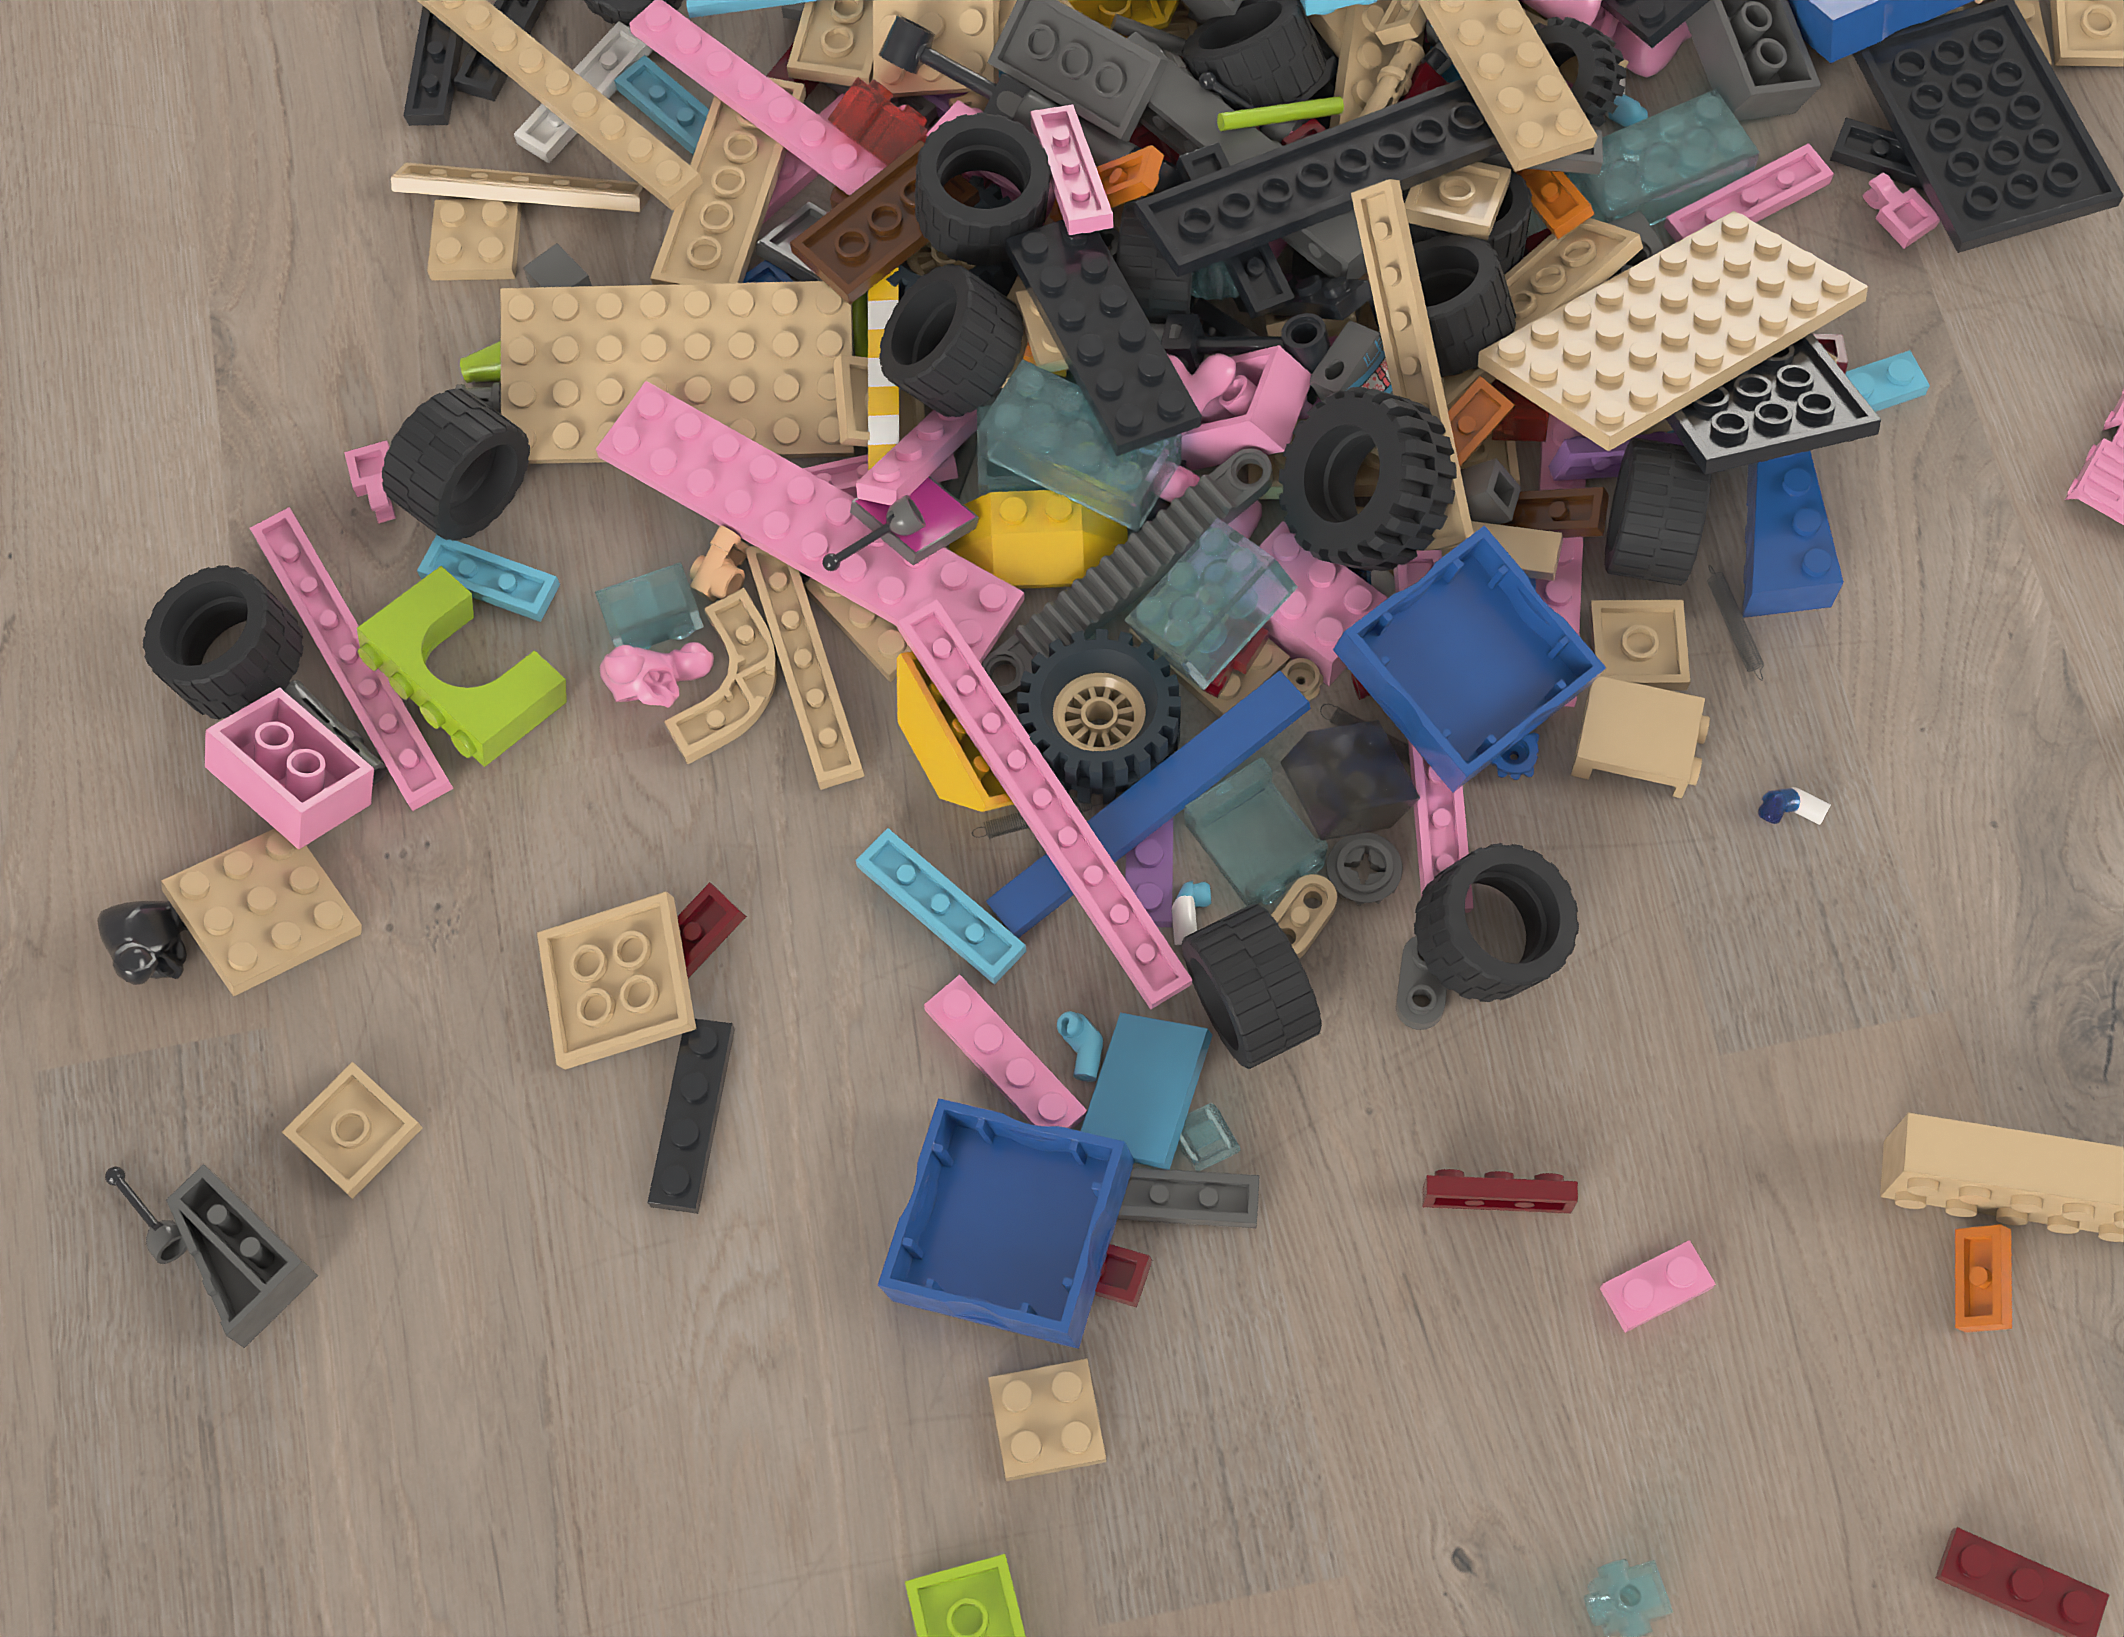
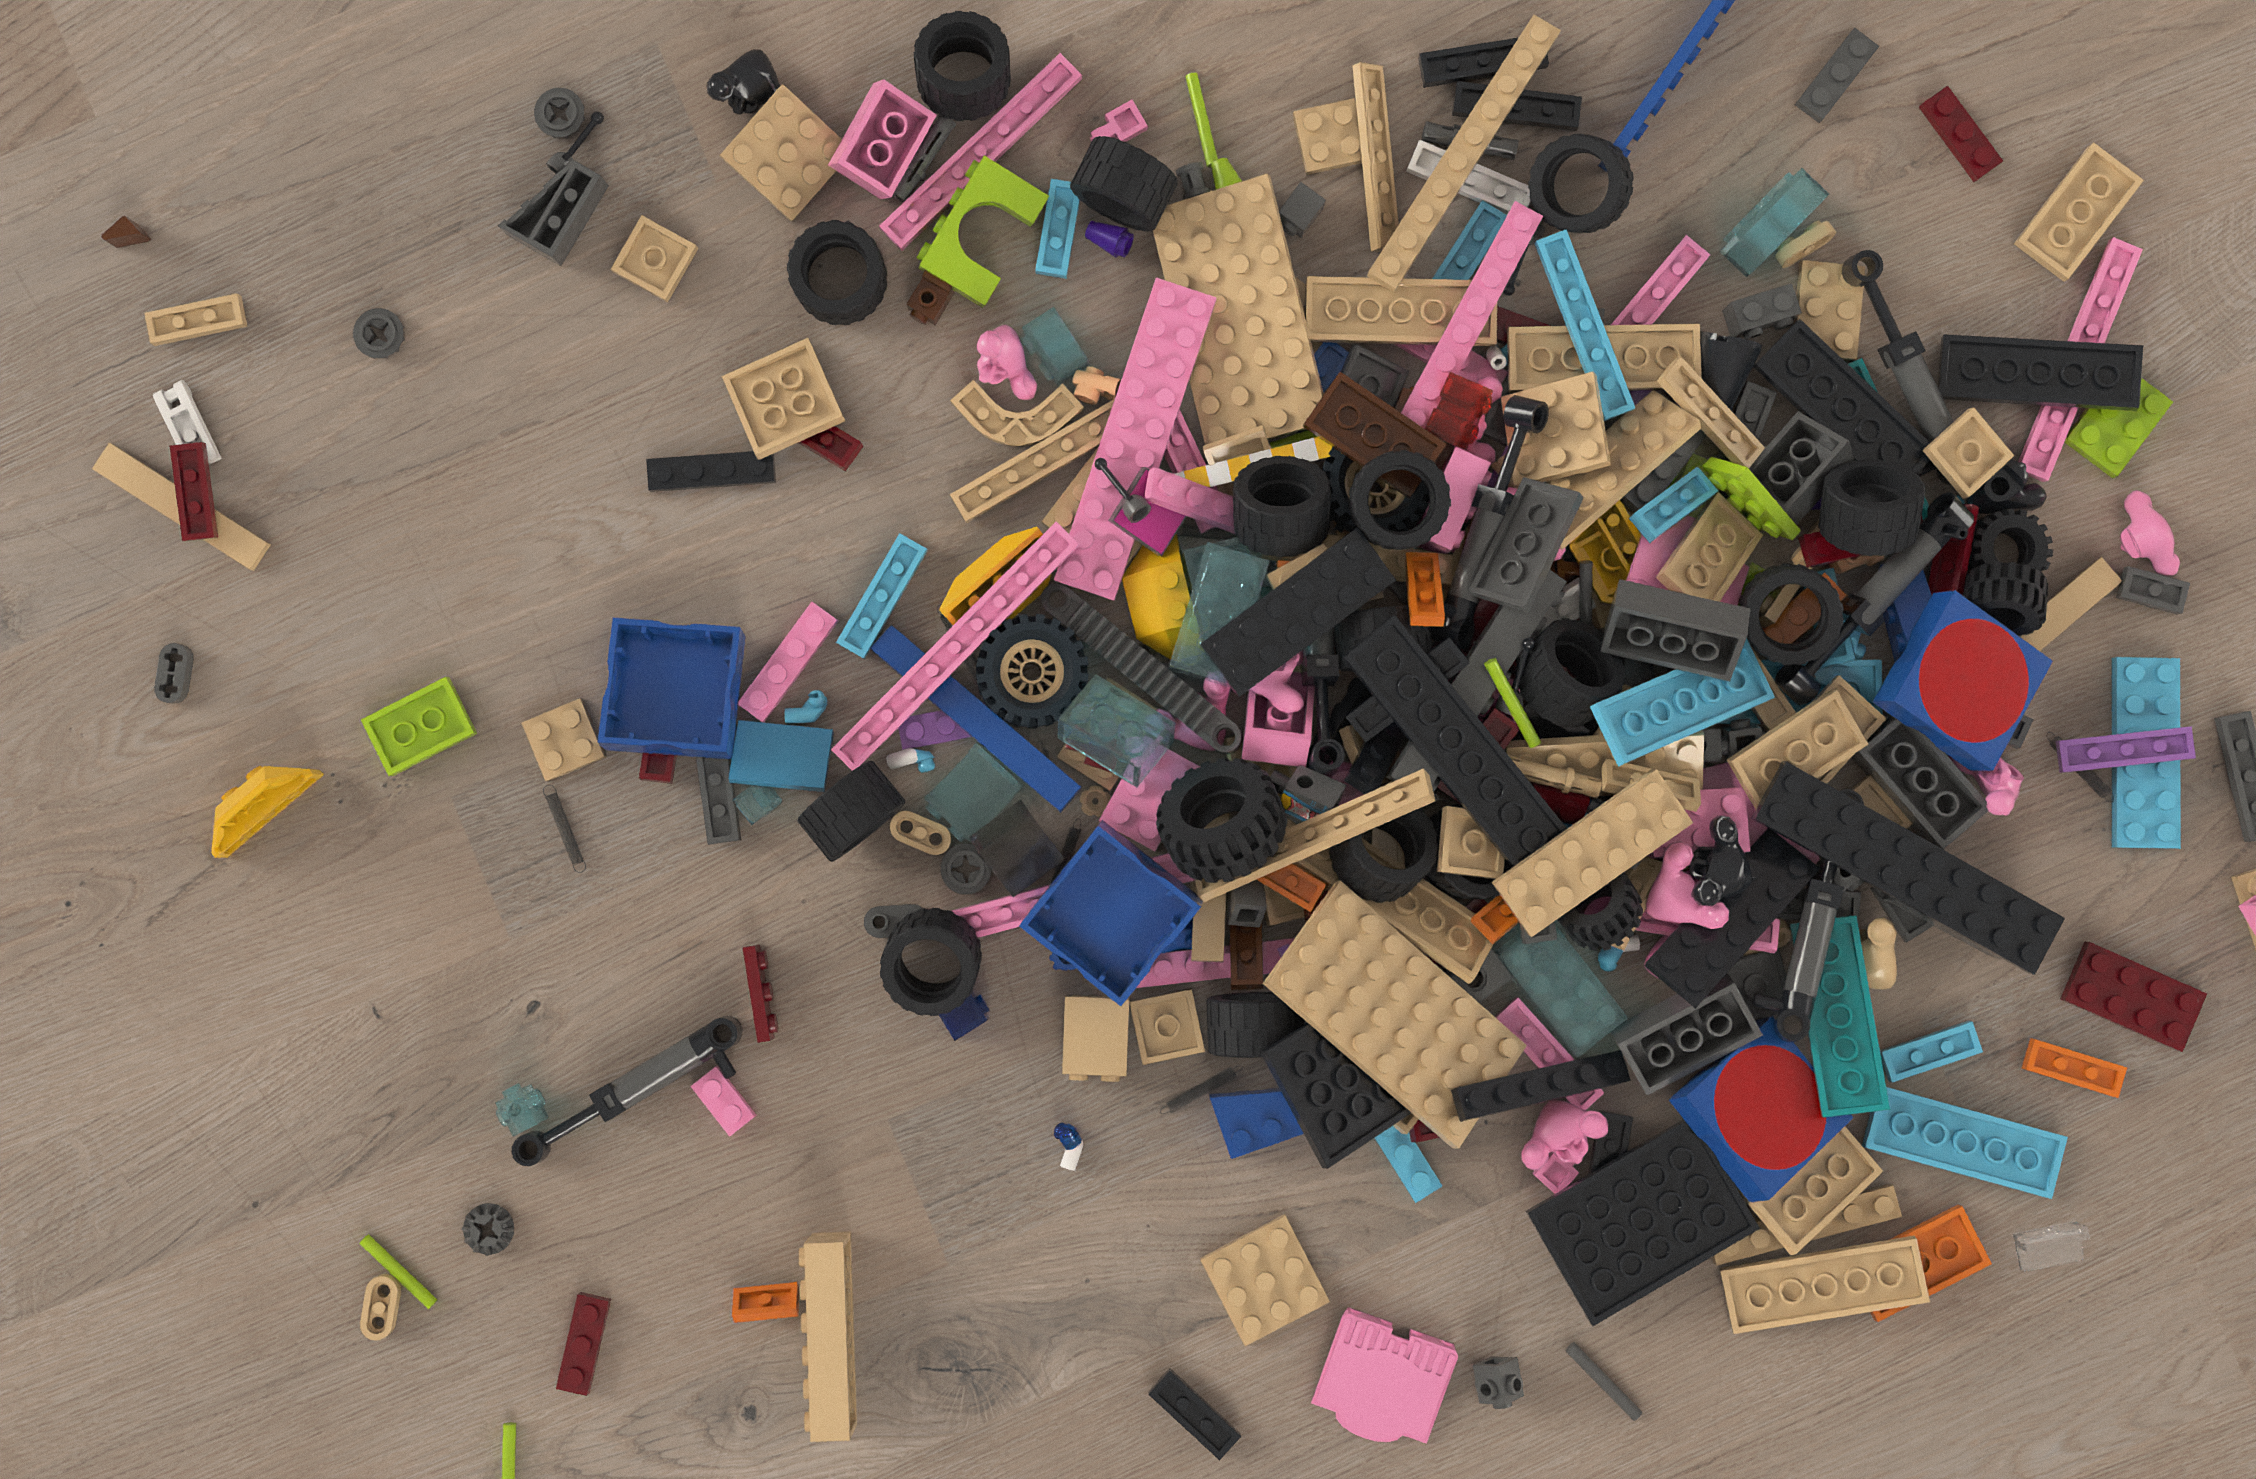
camera: 75 degrees right, 20 degrees up
(67, 1225) = (560, 99): none -> dark grey gear
(308, 1579) = (364, 334): none -> dark grey gear
(398, 382) = (1201, 118): none -> lime bar
(425, 828) = (820, 239): none -> black tyre
(517, 754) = (933, 311): none -> reddish brown brick
(521, 102) = (1445, 134): none -> dark grey pin
(522, 516) = (1111, 238): none -> dark purple cone
(821, 93) = (1497, 357): none -> white arm
(1072, 170) = (1425, 561): bright pink plate -> none
(1174, 1456) = (568, 826): none -> dark grey piece
(1595, 909) = (967, 1016): none -> clear blue brick
(1629, 1445) = (639, 1084): none -> piece
(1793, 195) = (1540, 1085): none -> black plate
(1856, 192) = (1564, 1131): none -> bright pink head
(2017, 591) = (1264, 1280): none -> tan plate

